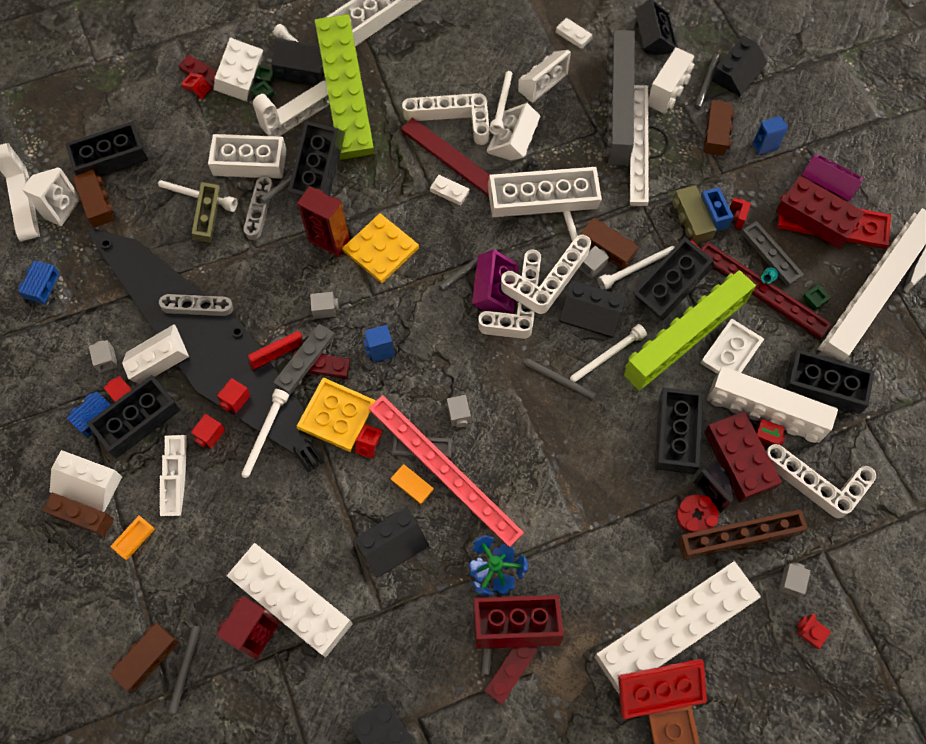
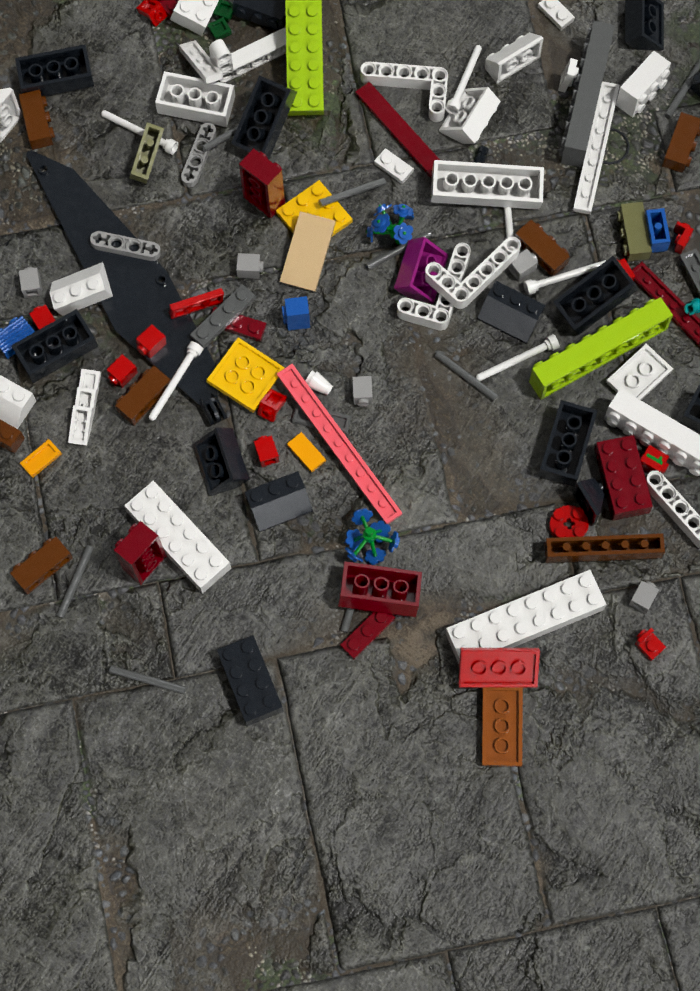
camera: 10 degrees right, 5 degrees up
(232, 453) = (142, 395): none -> reddish brown brick
(248, 121) = (201, 62): none -> white plate
(324, 509) = (221, 461): none -> black slope
(370, 490) = (266, 451): none -> red brick
(380, 282) = (307, 251): none -> tan tile
(399, 226) = (351, 192): none -> dark grey bar
(413, 410) = (318, 383): none -> white cone
(468, 249) = (400, 232): none -> blue plant
(599, 81) = (568, 75): none -> white plate

